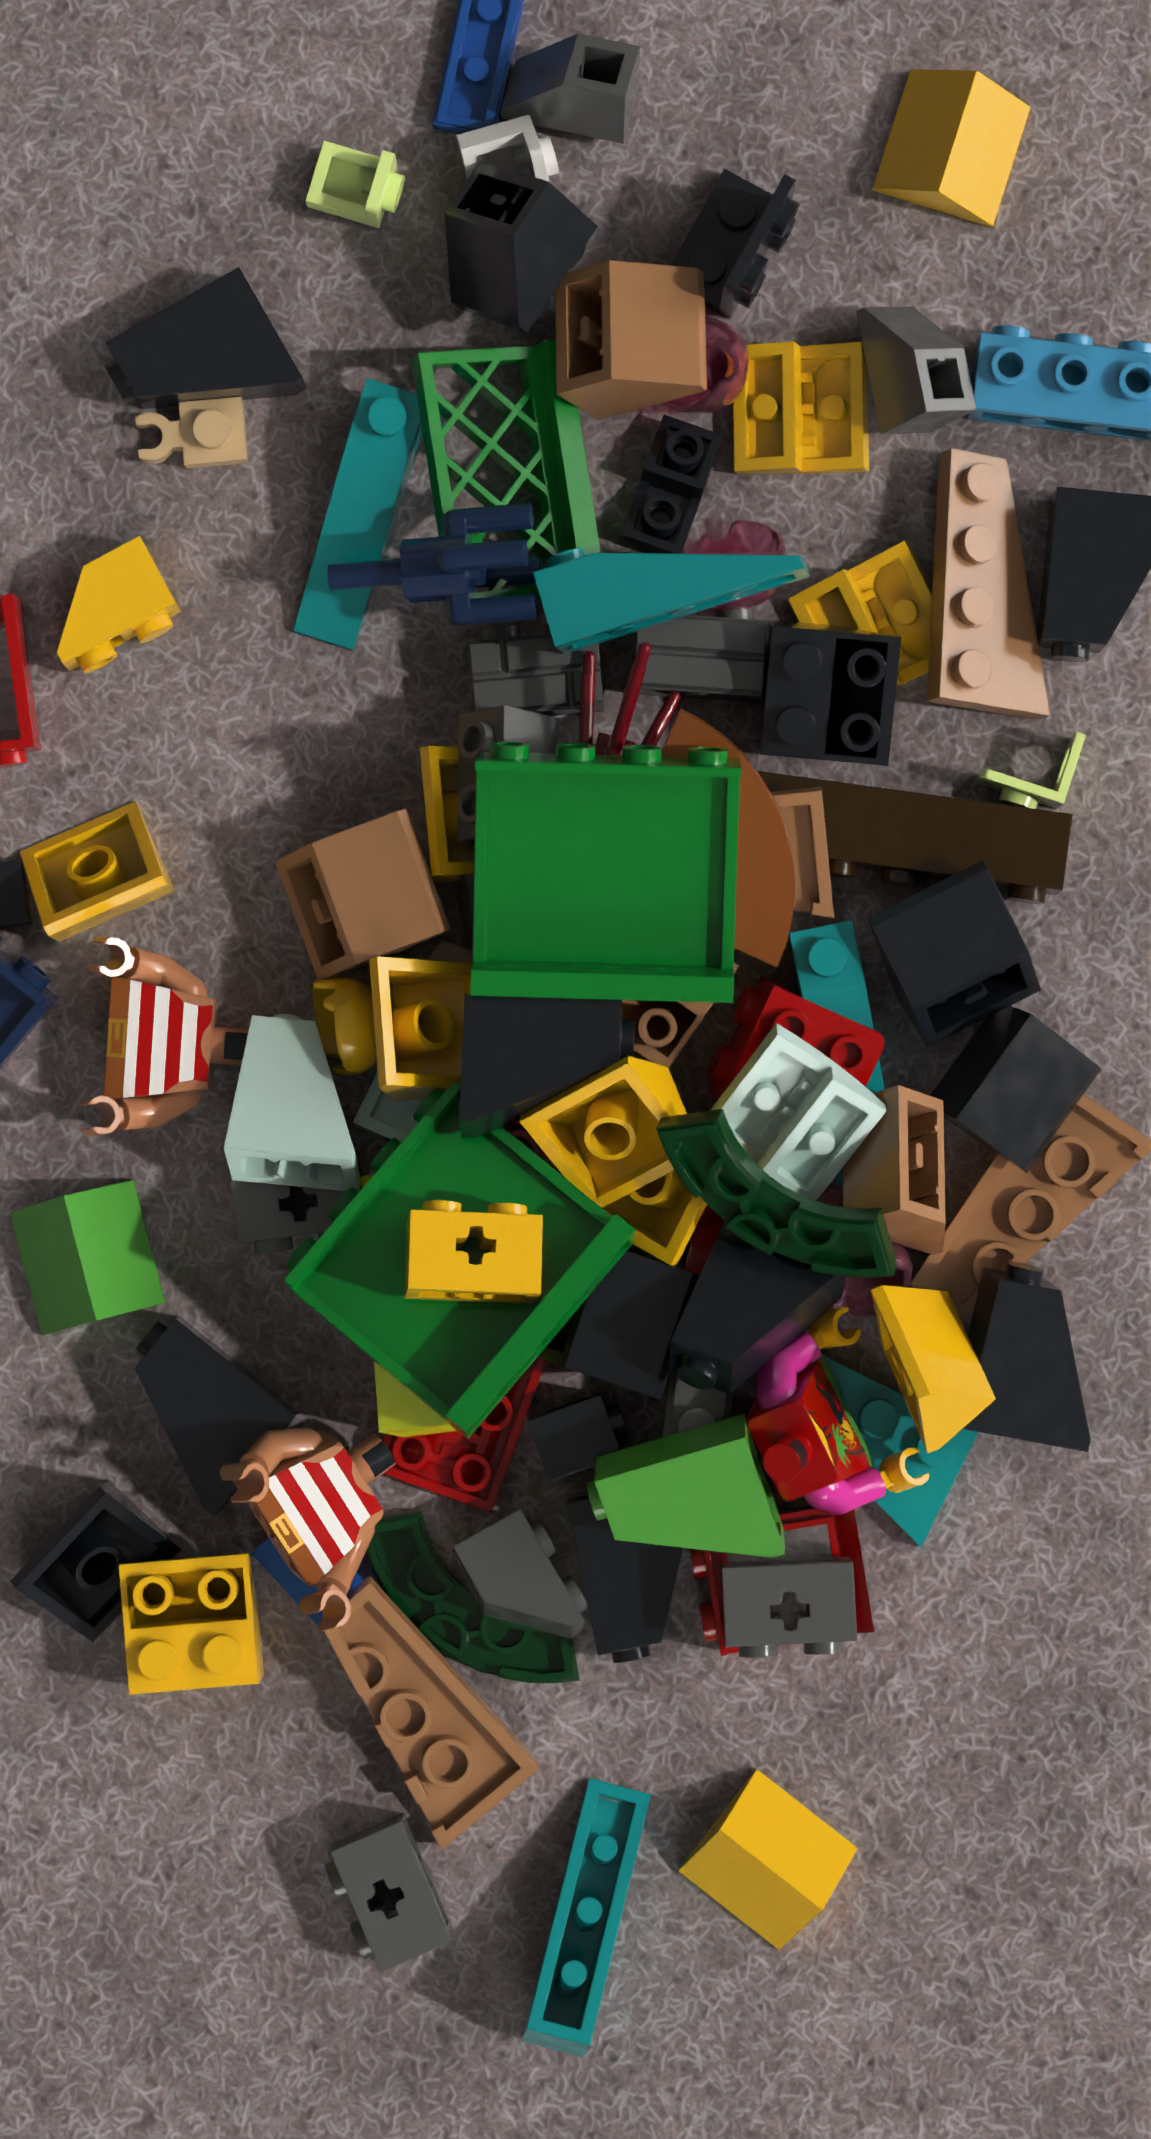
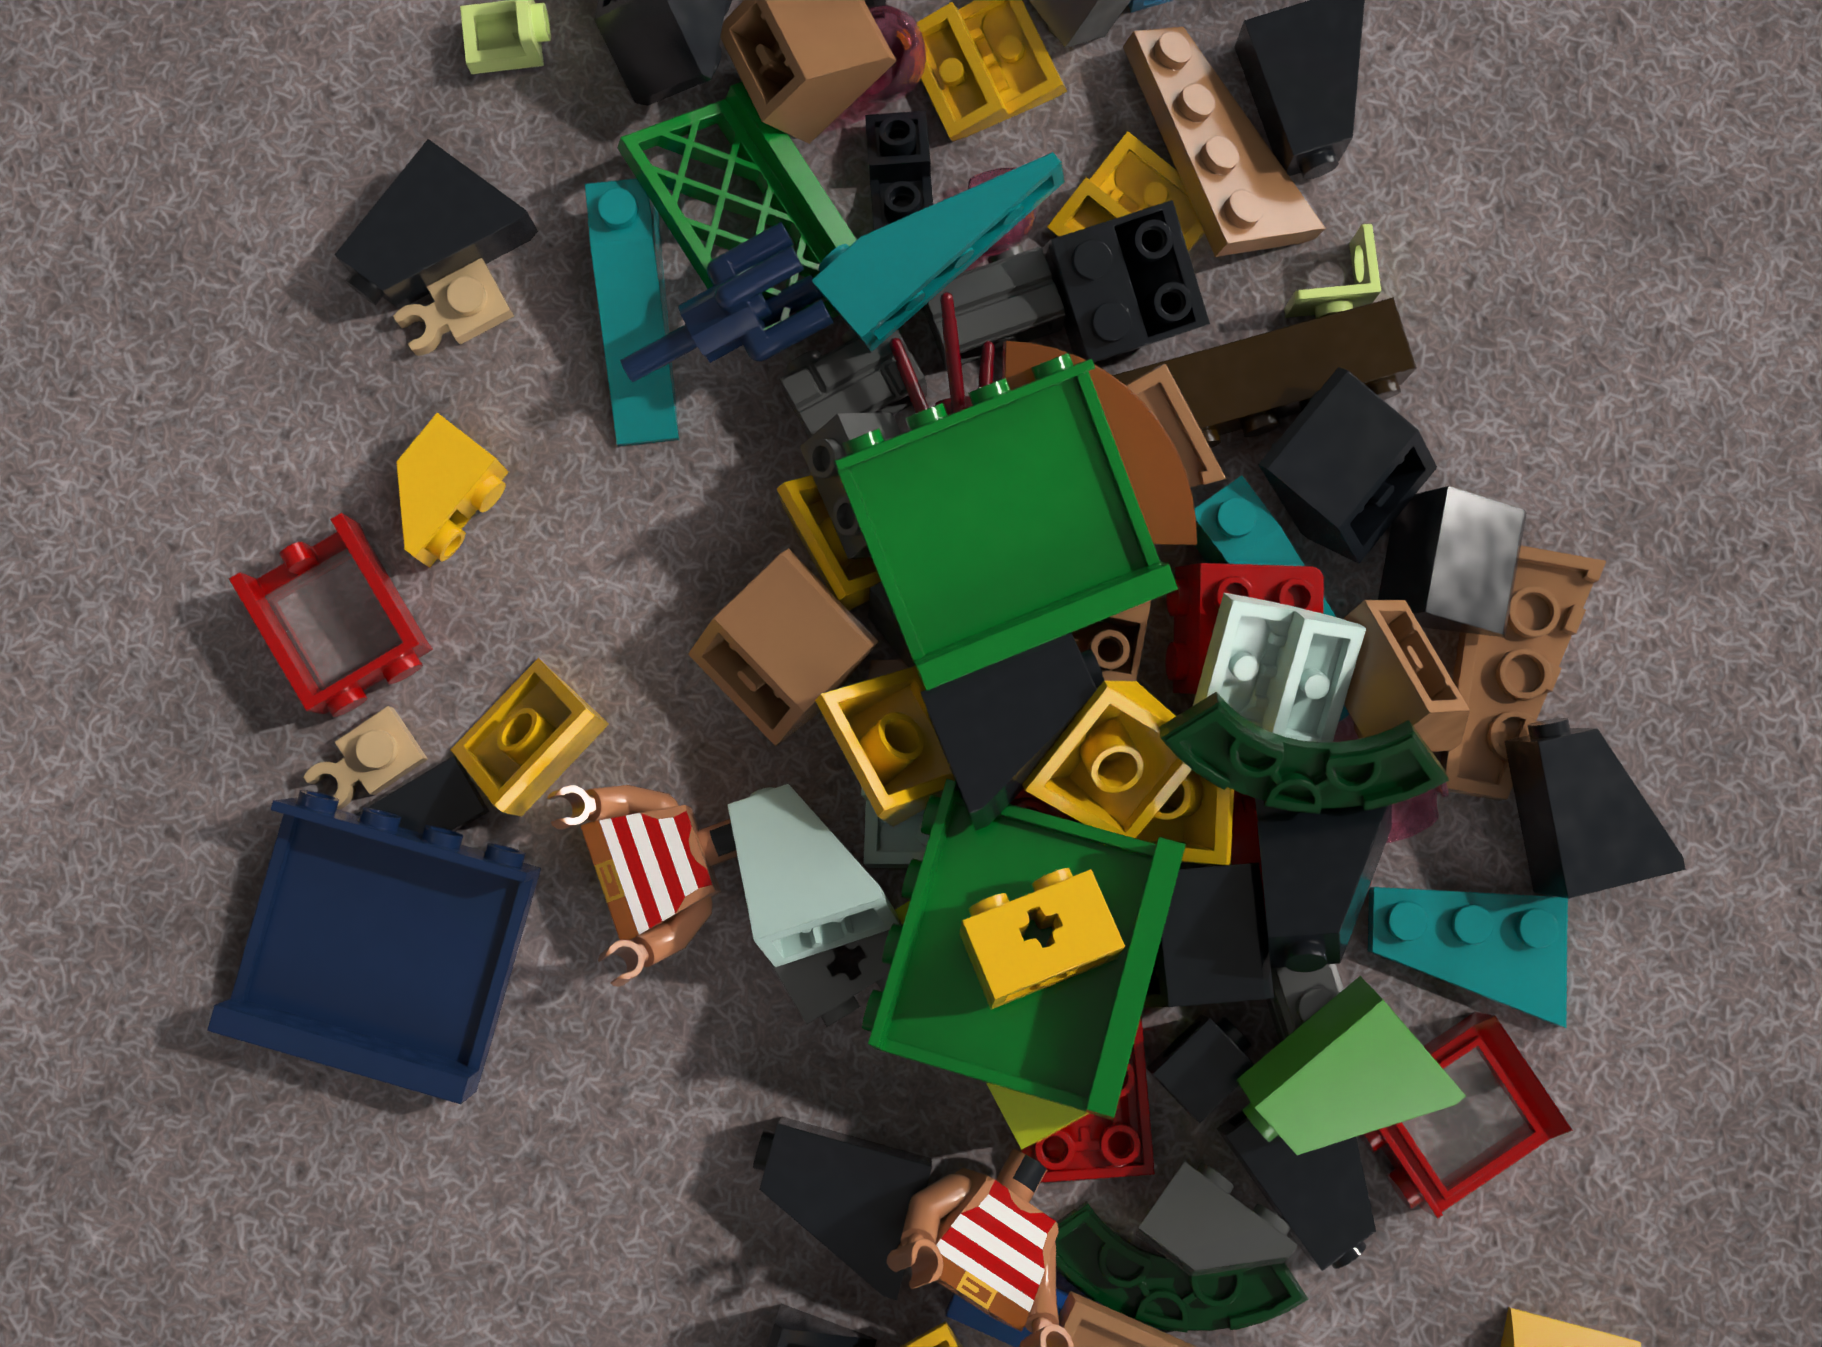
camera: 20 degrees left, 5 degrees down
(87, 1256) = (671, 1099): bright green slope -> none
(345, 1023) = (819, 773): yellow hair -> none
(756, 1585) = (1448, 1142): dark grey brick -> none
(809, 1433) = (1426, 967): torso -> none
(931, 1361) = (1505, 851): yellow slope -> none

